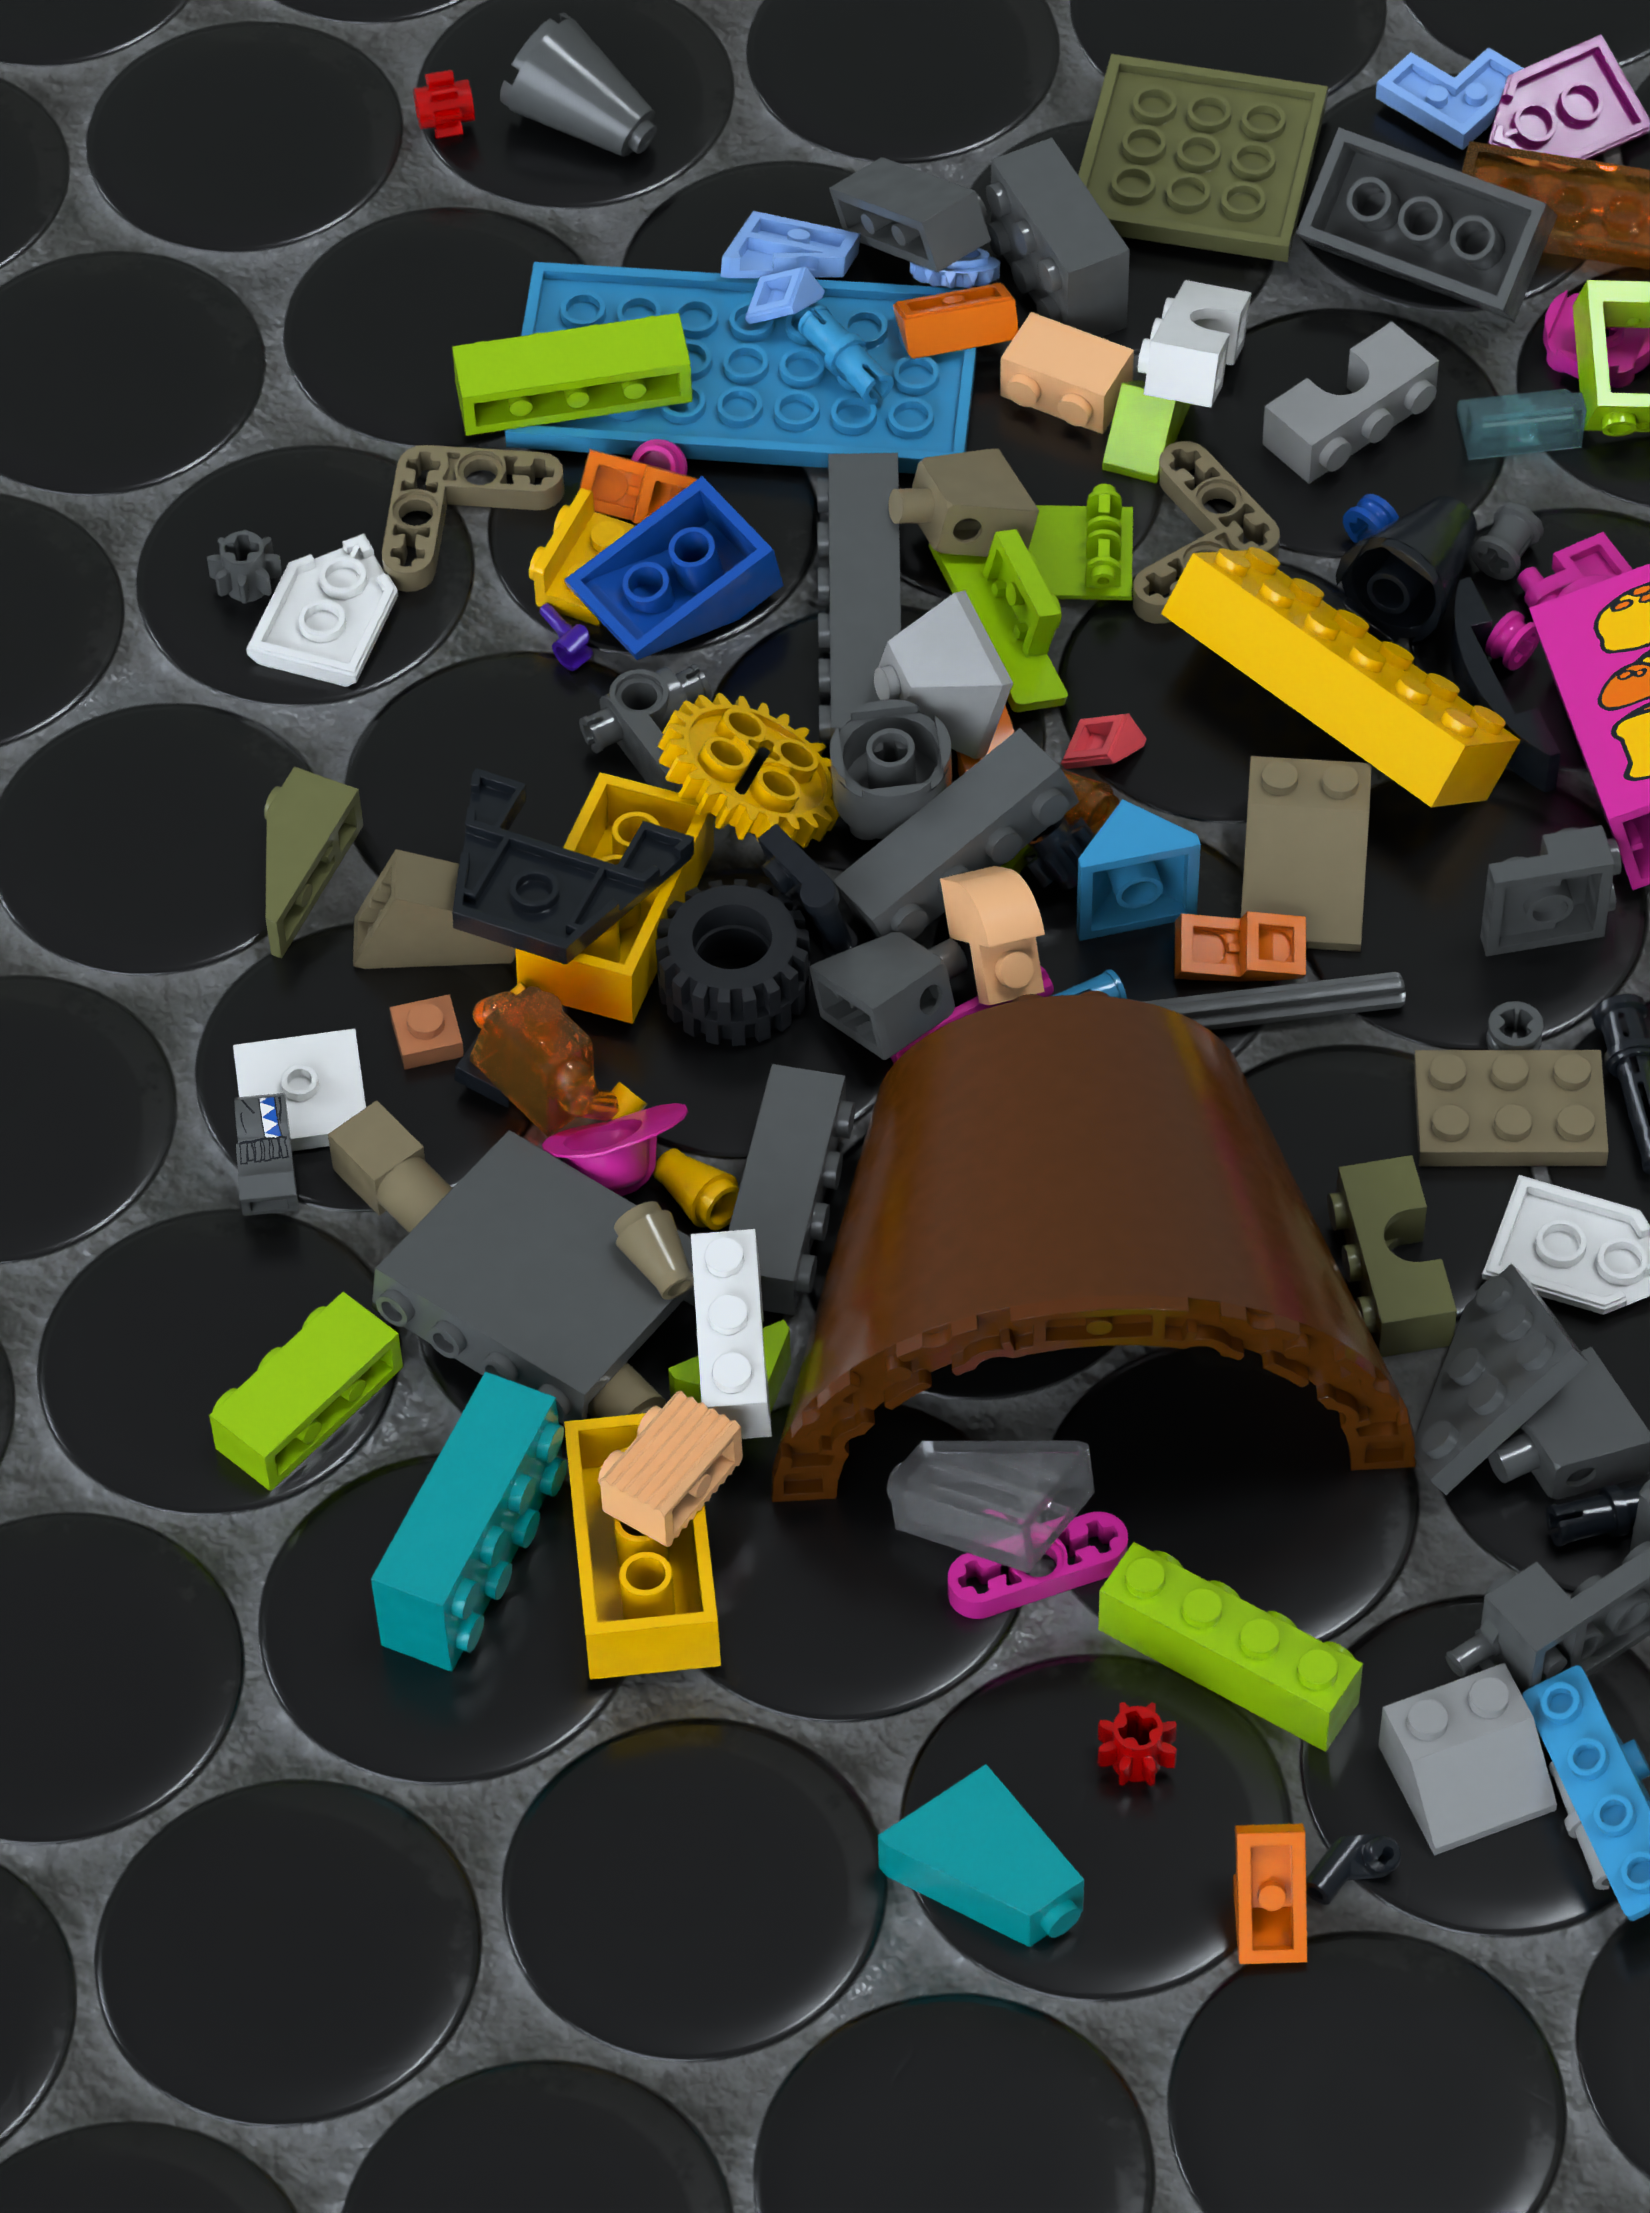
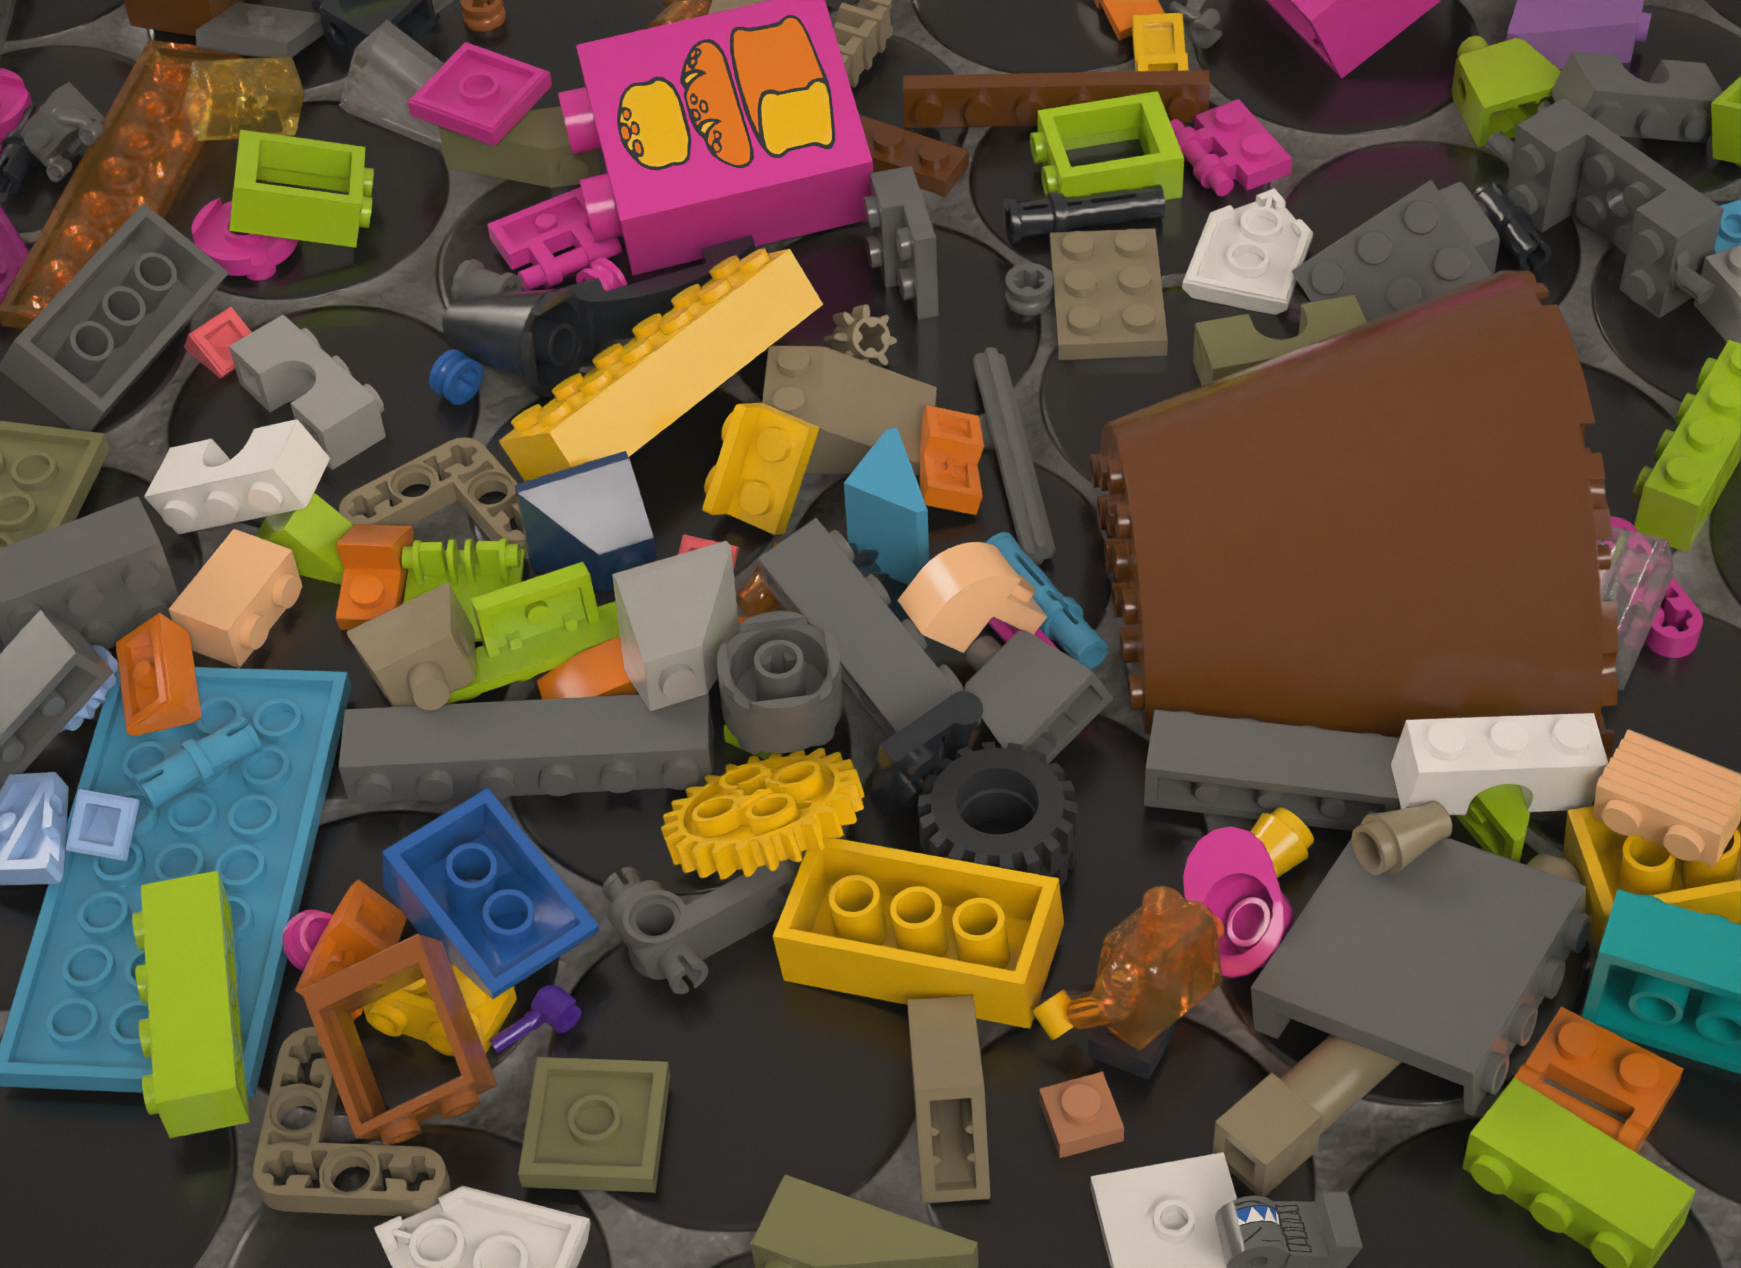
camera: 90 degrees left, 5 degrees down
(414, 1450) = (1603, 1071): none -> orange plate
(446, 676) = (595, 1124): none -> olive plate
(513, 514) = (367, 981): none -> dark orange window
(545, 894) = (963, 964): black wing -> none
(1110, 459) = (372, 572): none -> orange slope
(1129, 637) = (587, 517): none -> slope
(1208, 761) = (760, 466): none -> yellow bracket
(1413, 863) = (849, 333): none -> dark tan gear
(1437, 330) = (212, 341): none -> coral slope
(1522, 423) = (338, 287): clear light blue panel -> none

